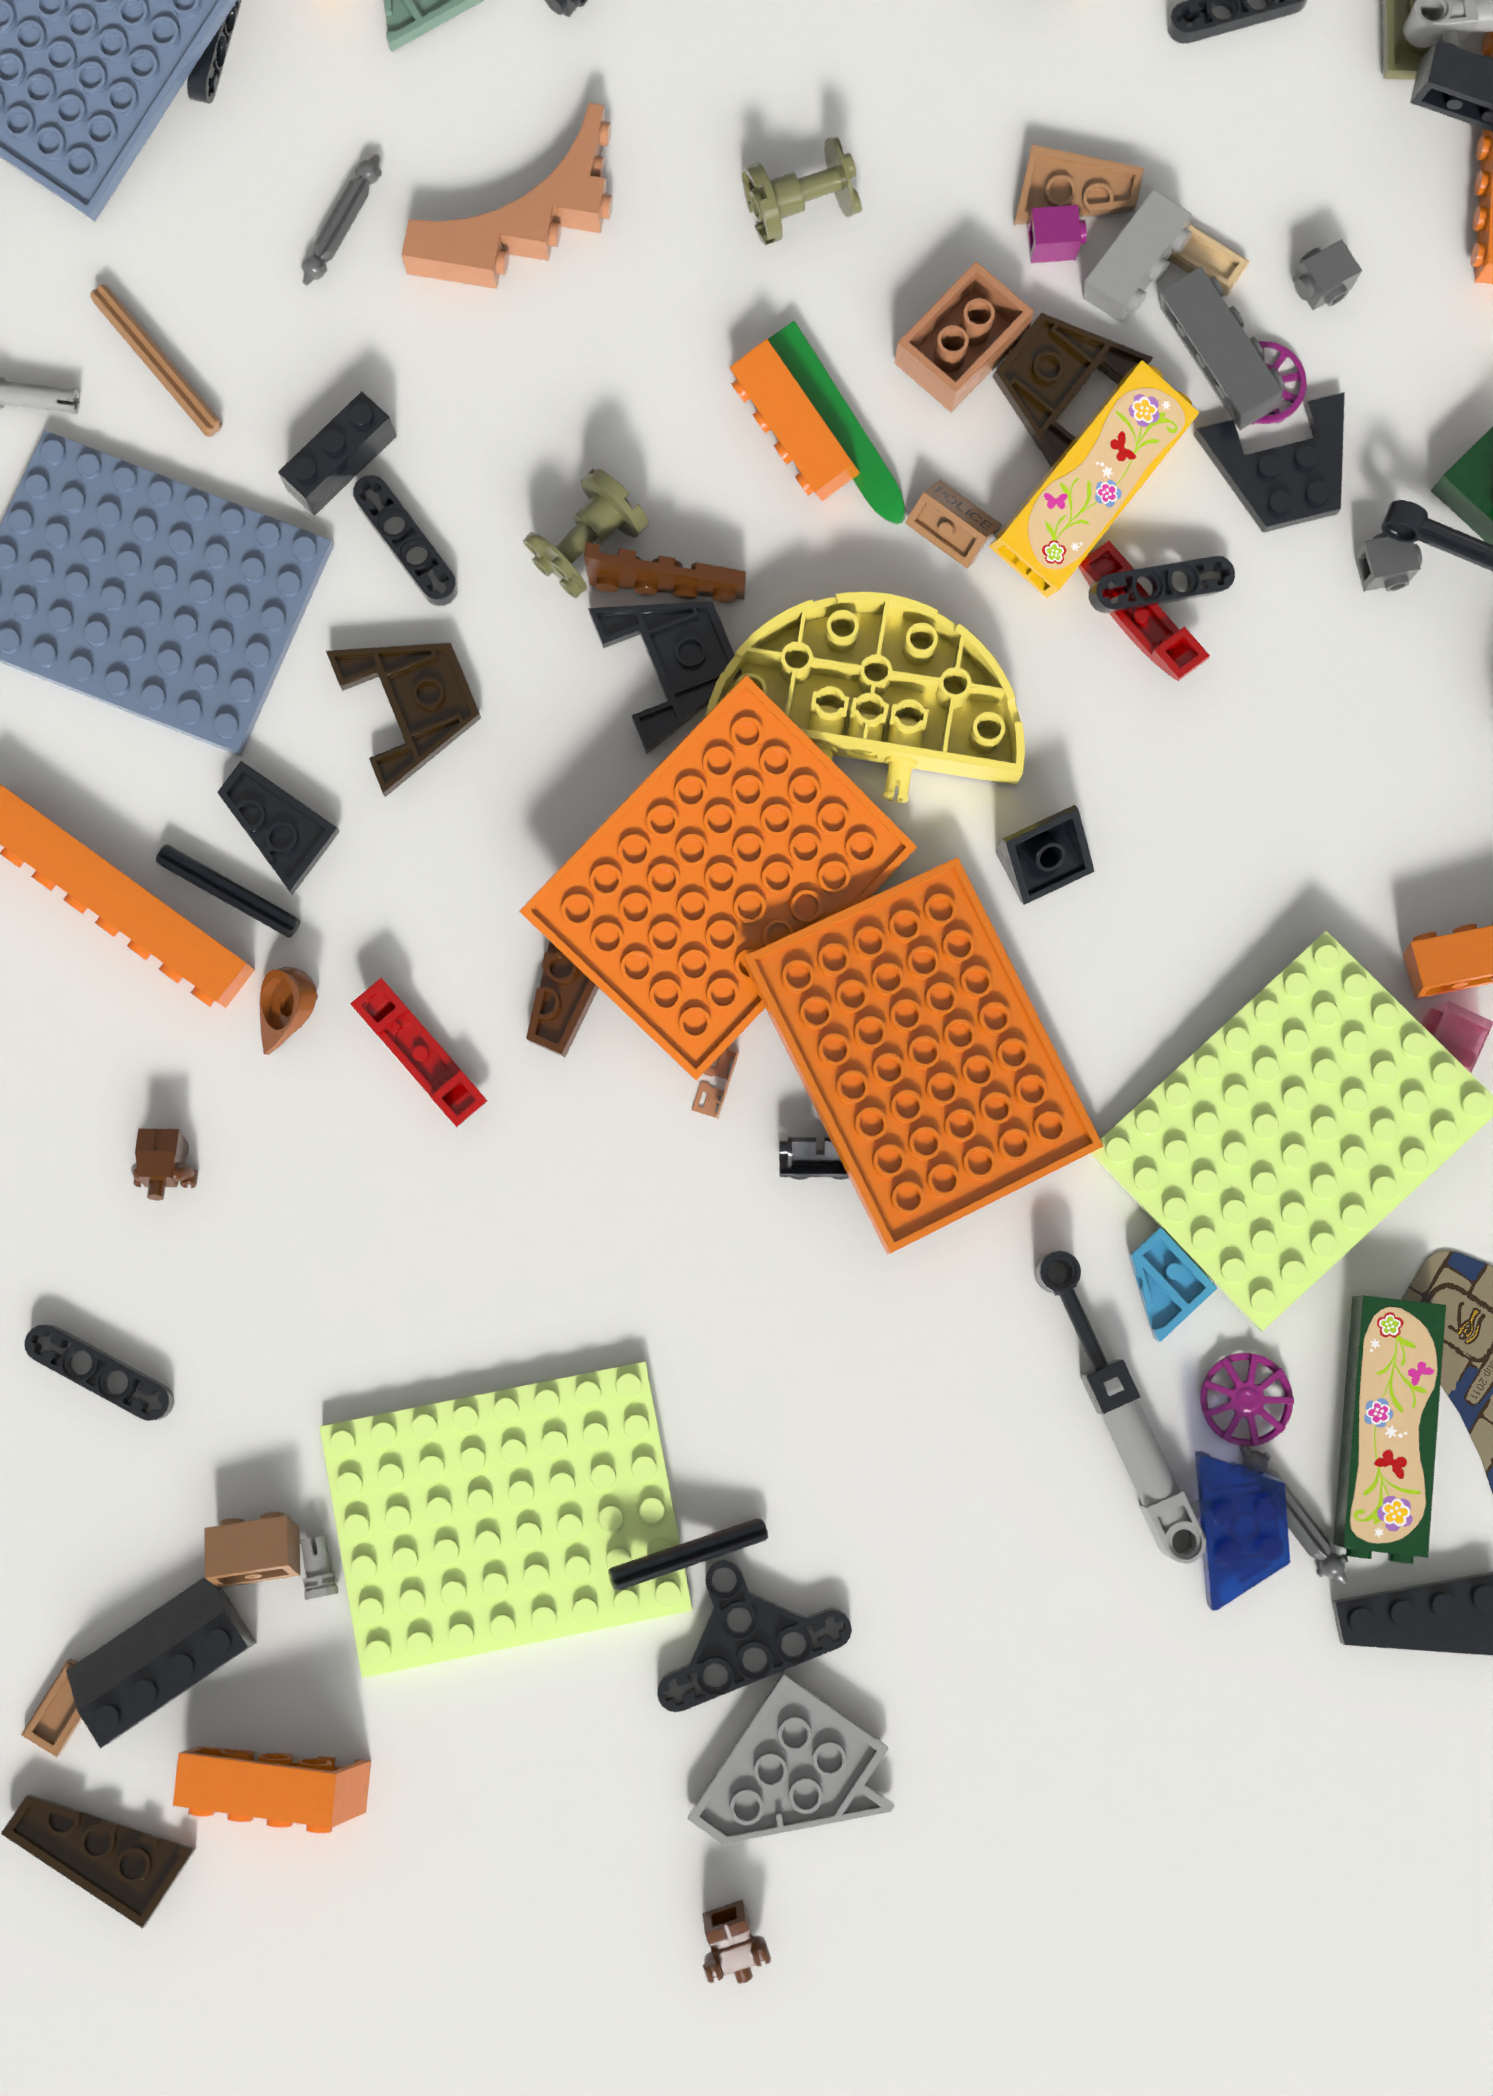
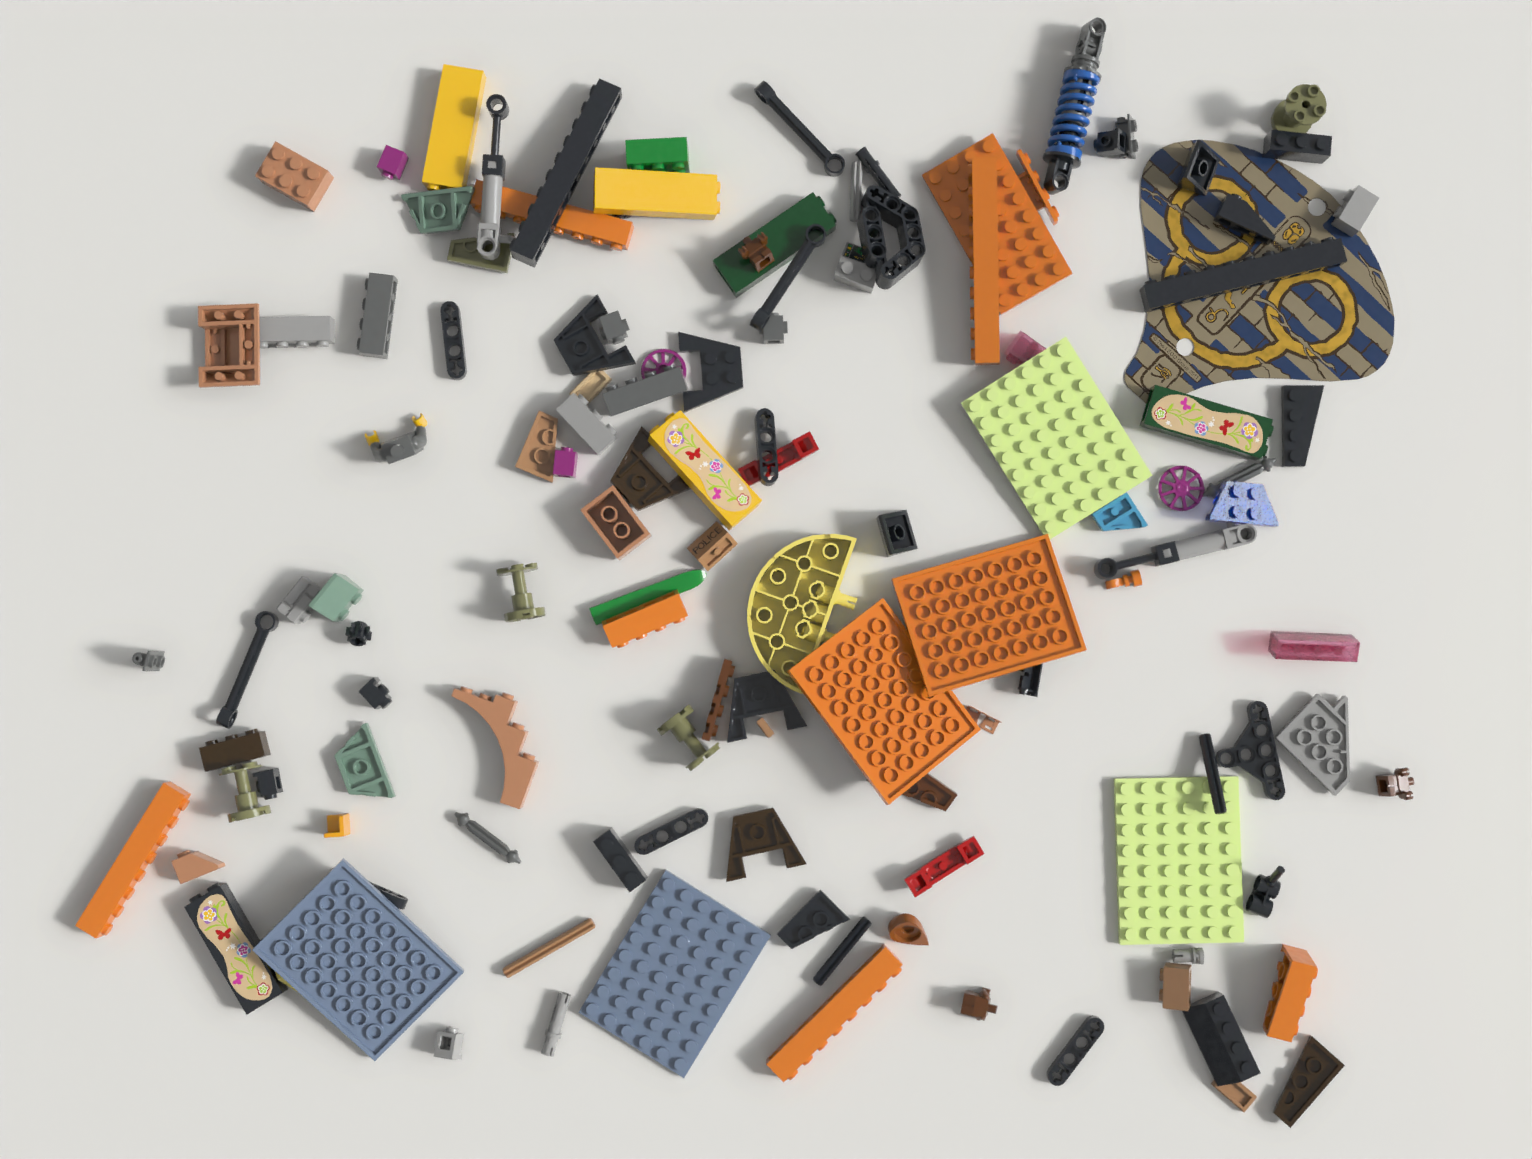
camera: 75 degrees left, 5 degrees up
(471, 1701) = (1264, 889): none -> black beam
(629, 674) = (765, 727): none -> medium nougat tile
(982, 1722) = (1313, 646): none -> clear pink brick
(1049, 1333) = (1134, 578): none -> orange piece
(1278, 227) = (583, 348): none -> black wing

